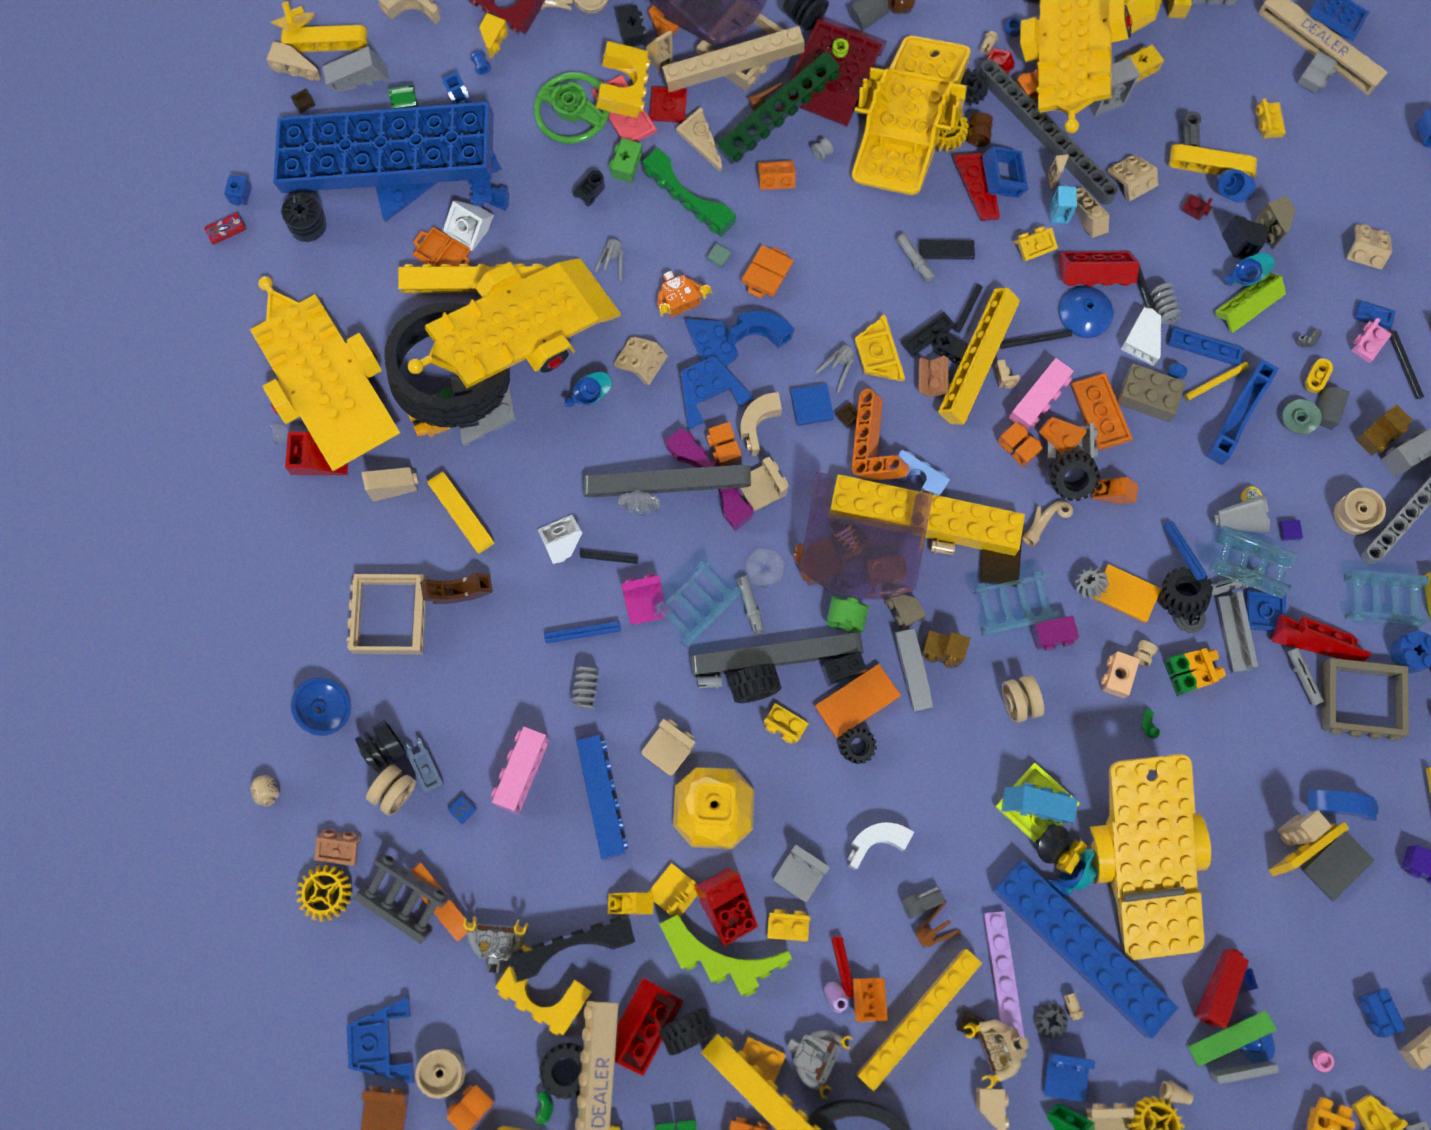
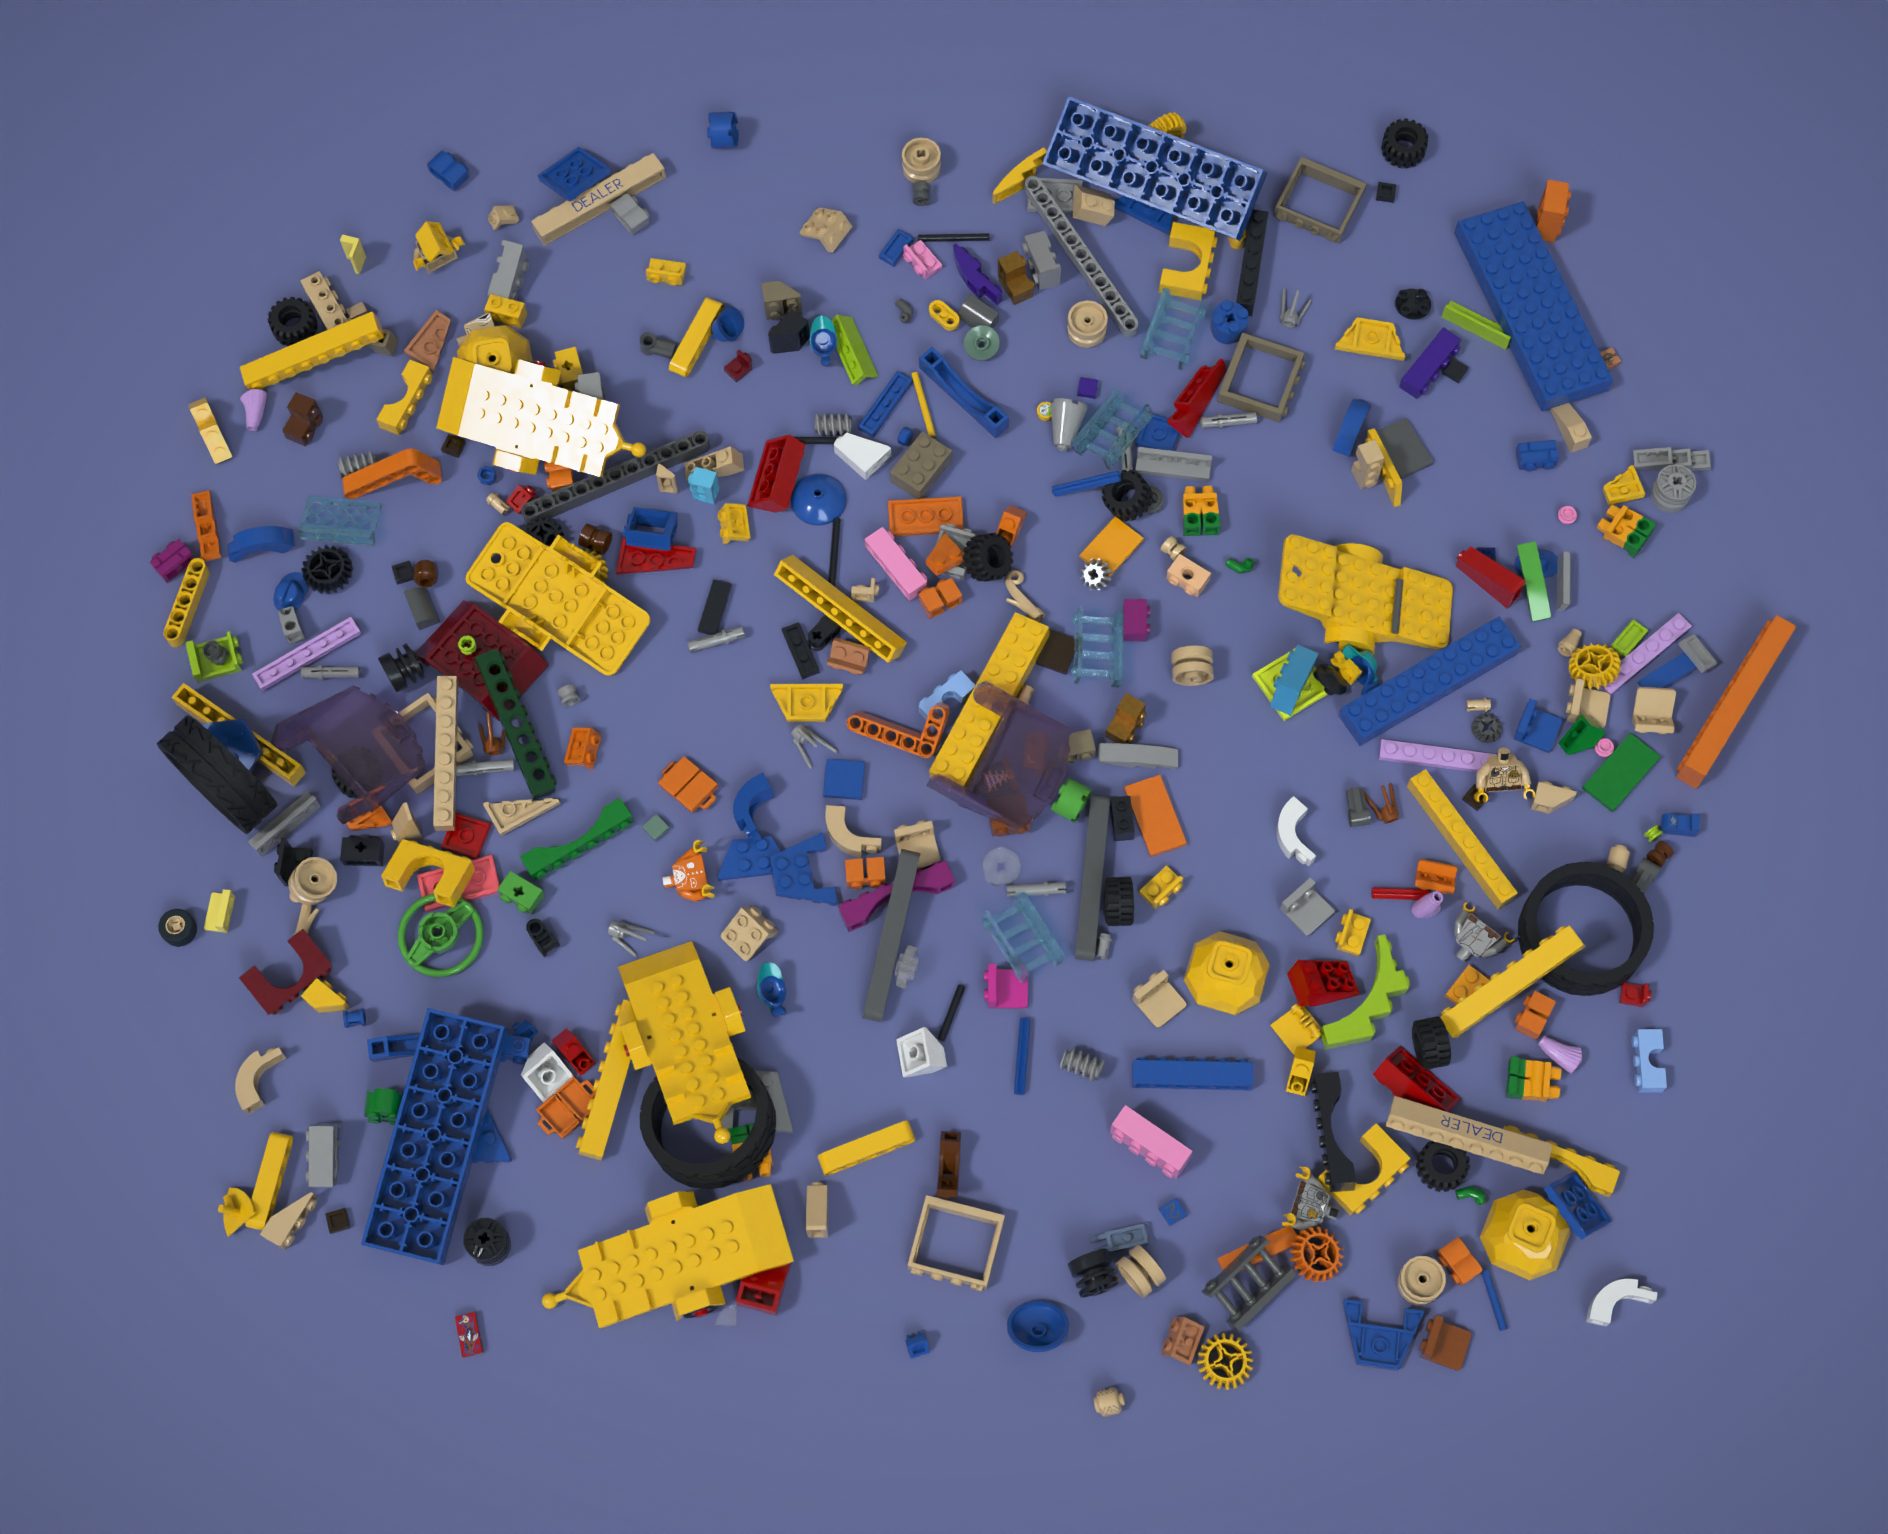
camera: 70 degrees left, 5 degrees down
(237, 190) = (429, 1310): blue brick -> none
(284, 602) = (917, 1345): none -> blue tile
(438, 957) = (1329, 1263): none -> orange gear
(491, 241) = (573, 1051): none -> red slope
(732, 94) = (485, 767): none -> light grey pin
(847, 415) = (864, 748): dark brown tile -> none
(869, 748) = (1194, 834): black tyre -> none
(968, 308) = (784, 606): black bar -> none
(1136, 176) = (688, 411): tan bracket -> none
(1372, 392) = (970, 272): none -> dark purple slope

